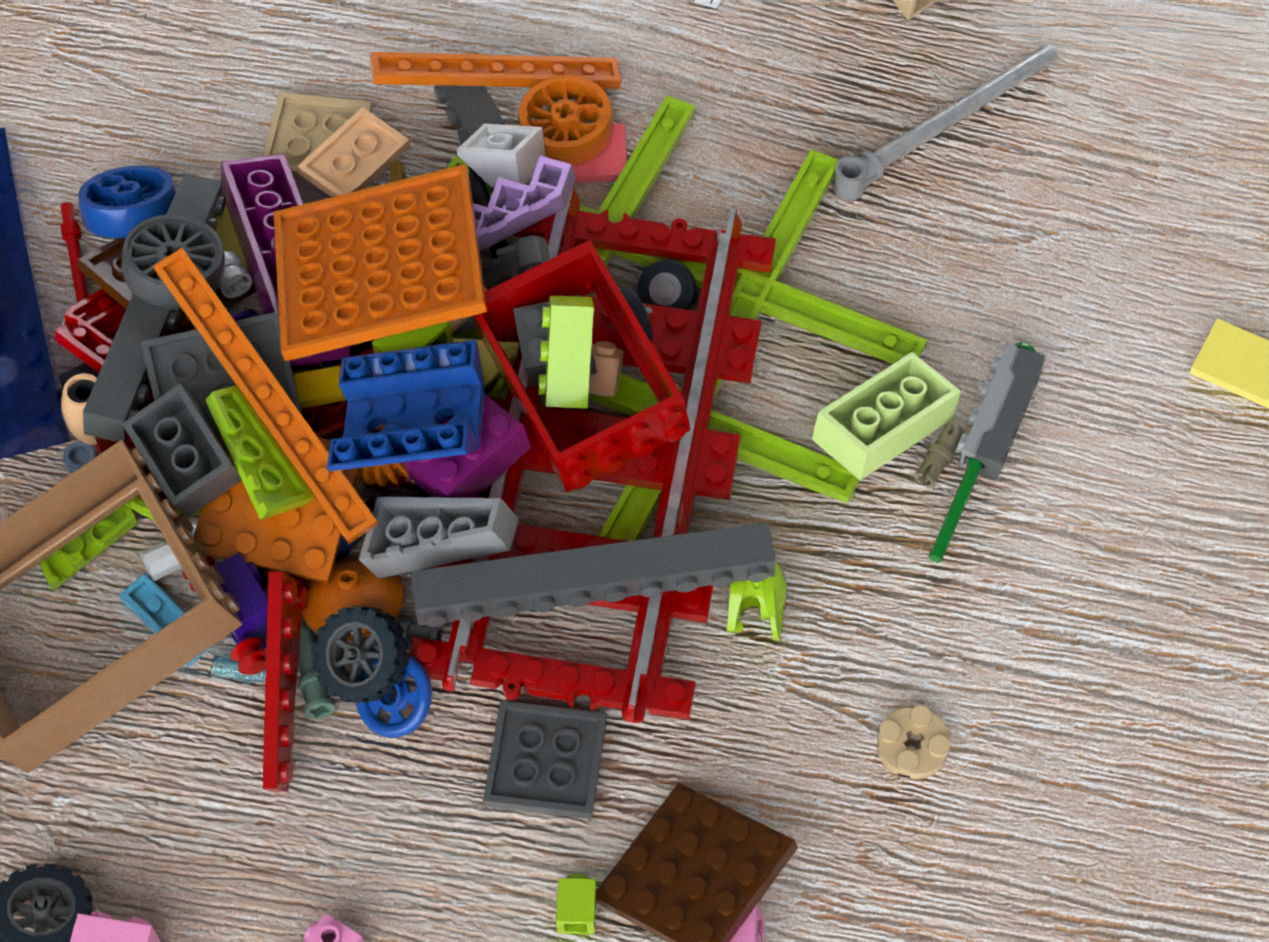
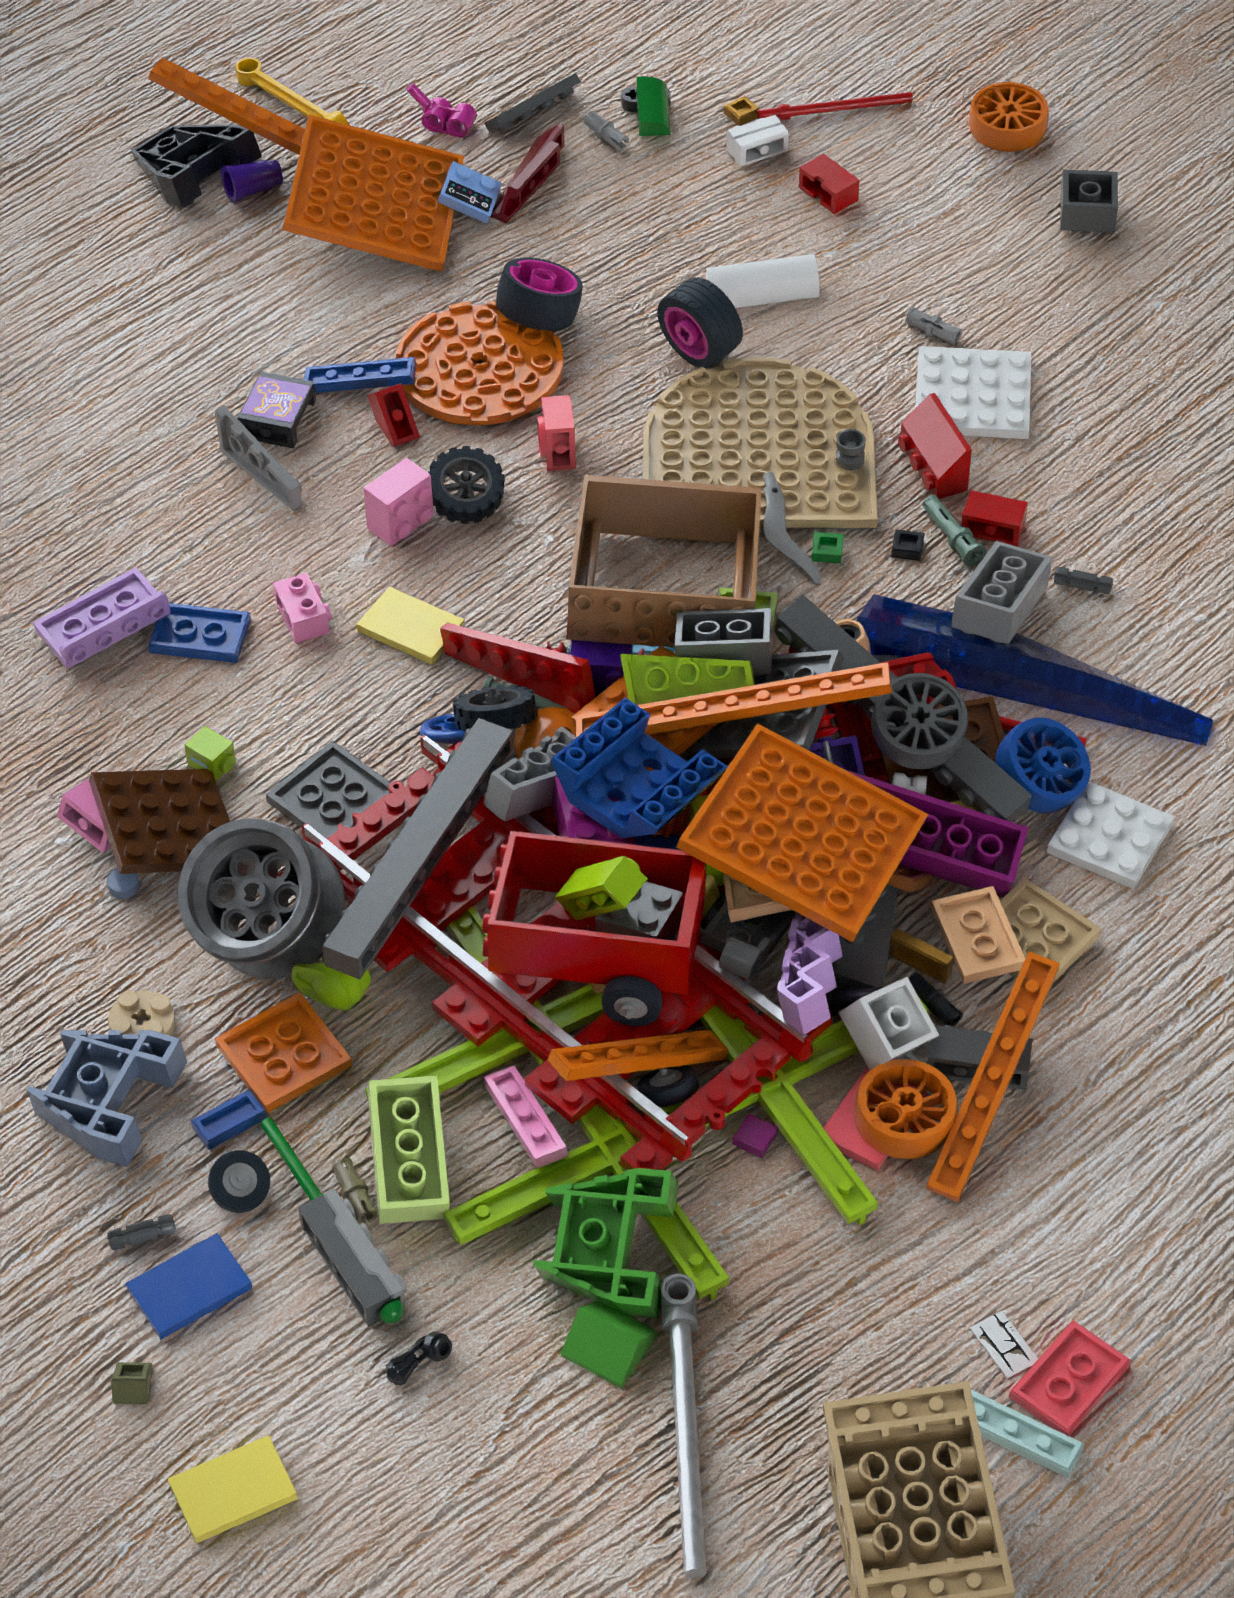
camera: 125 degrees right, 10 degrees down
(163, 137) = (1110, 835): none -> white plate
(273, 846) = (407, 624): none -> light yellow tile
(439, 157) = (935, 1000): none -> black axle
(659, 212) = (755, 1135): none -> magenta tile
(692, 288) = (637, 1055): none -> orange plate
(751, 668) = (221, 888): none -> flat silver wheel
(779, 366) = (525, 1117): none -> bright pink plate
(786, 881) = (123, 885): none -> sand blue tile
(845, 239) = (598, 1237): none -> bright green wedge
(855, 598) = (283, 1052): none -> orange plate
(918, 204) = (607, 1342): none -> bright green slope
(950, 599) = (229, 1119): none -> blue tile
(1007, 536) = (239, 1181): none -> black wheel
(1013, 709) = (96, 1080): none -> sand blue wedge
(1061, 318) = (433, 1346): none -> black piece
(1108, 584) = (141, 1232): none -> dark grey axle
(1121, 515) = (189, 1286): none -> blue tile
(1231, 497) = (131, 1383): none -> olive slope

